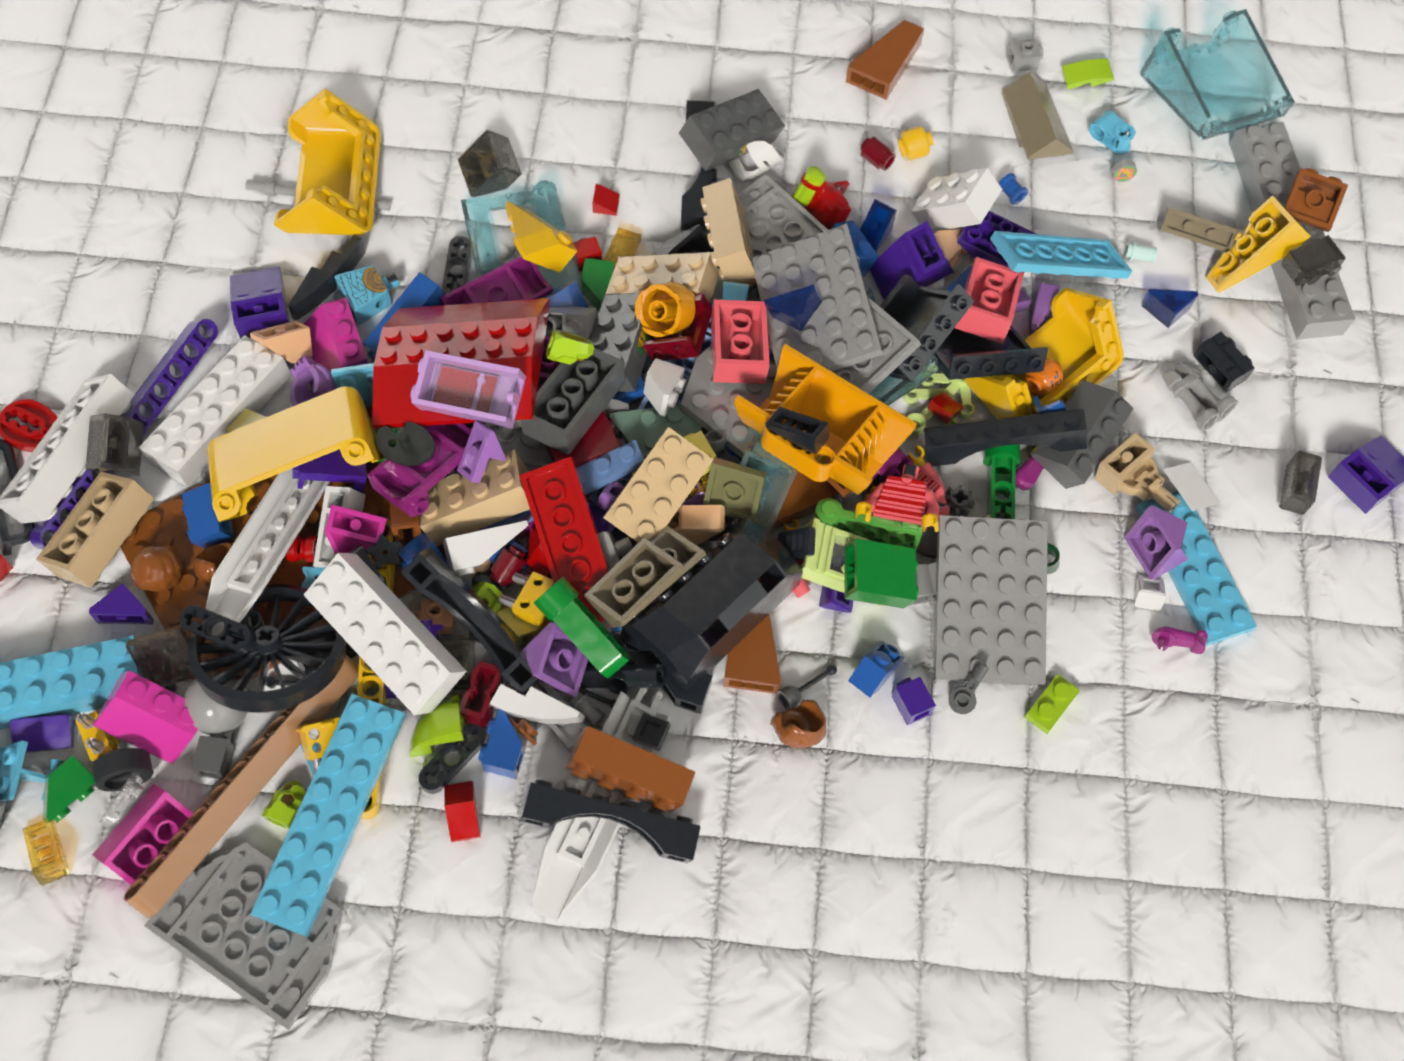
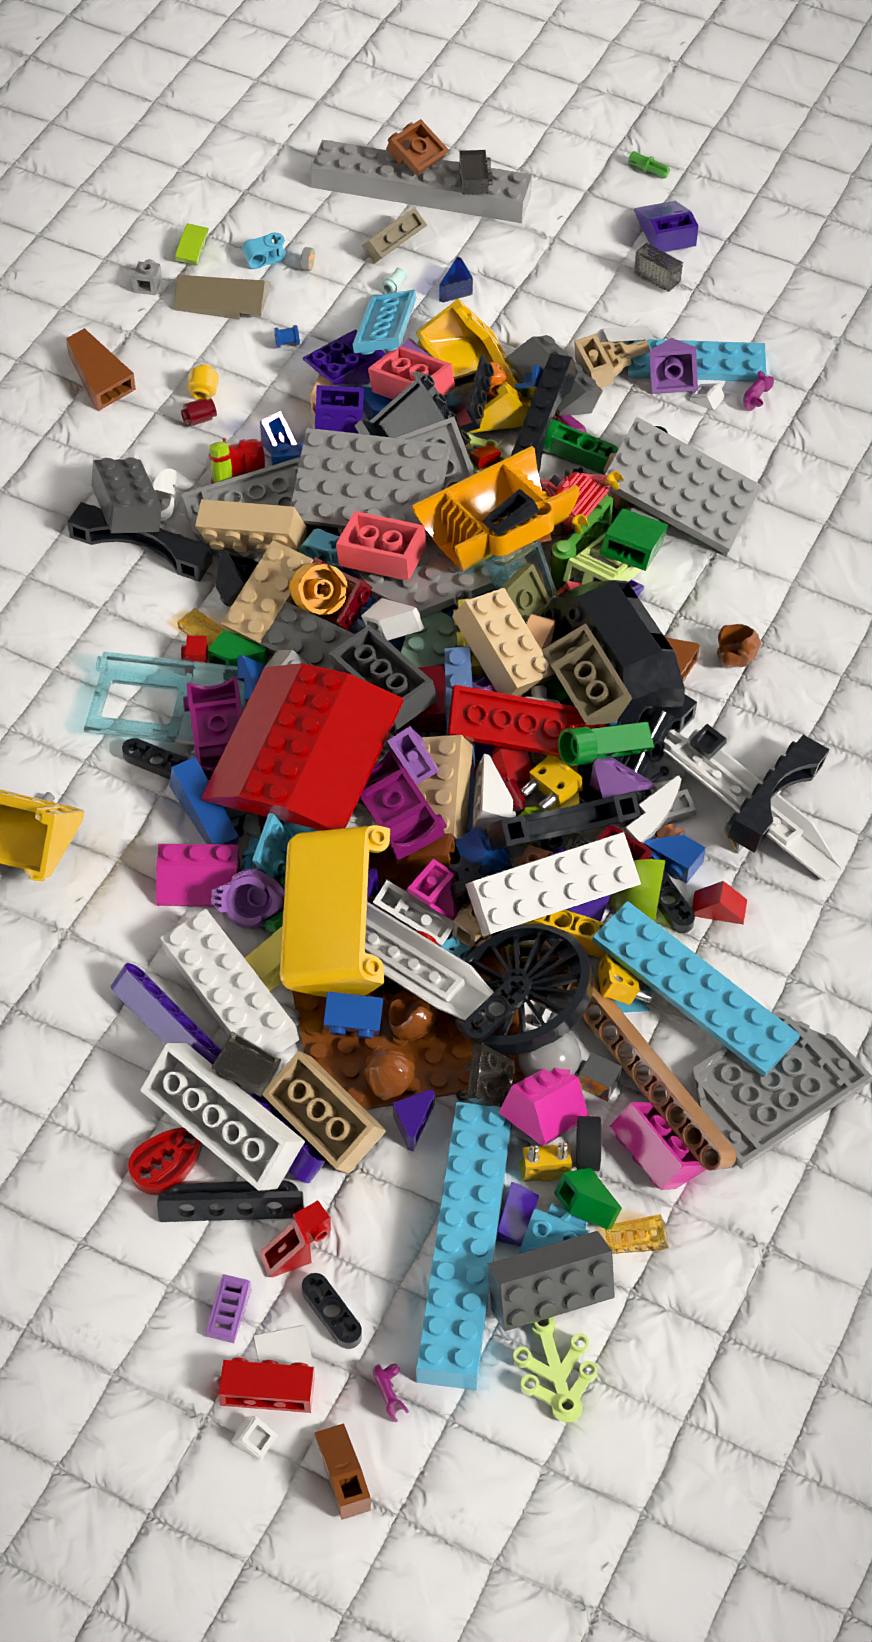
camera: 65 degrees left, 10 degrees down
(130, 791) = (618, 1156): clear plate -> none
(258, 300) = (114, 924): dark purple slope -> none
(285, 804) = (667, 1033): lime rock -> none
(287, 340) = (181, 903): light nougat slope -> none
(321, 282) = (115, 864): black slope -> none
(366, 291) = (145, 833): medium azure torso -> none
(413, 445) = (381, 803): pearl dark grey piece -> none
(468, 388) = (356, 732): door -> none
(489, 164) = (50, 699): clear smoke slope -> none
(538, 239) = (179, 669): yellow wedge -> none
(568, 347) = (340, 654): lime rock -> none
(605, 200) = (139, 625): red slope -> none
(629, 770) = (743, 757): dark orange brick -> none
(791, 696) = (707, 647): dark grey hinge -> none
(794, 307) = (374, 491): clear blue slope -> none
(799, 542) = (598, 559): black slope -> none
(876, 668) = (706, 582): blue slope -> none
(913, 700) = (742, 569): dark purple brick -> none
(957, 199) = (292, 368): white brick -> none
(962, 699) = (752, 538): dark grey plate -> none
(1052, 703) = (778, 488): lime plate -> none
(1184, 380) = (558, 298): light grey piece -> none
(1219, 82) = (258, 158): clear light blue windscreen -> none
(1224, 361) = (525, 270): black brick -> none
(1262, 243) = (436, 198): yellow wedge -> none

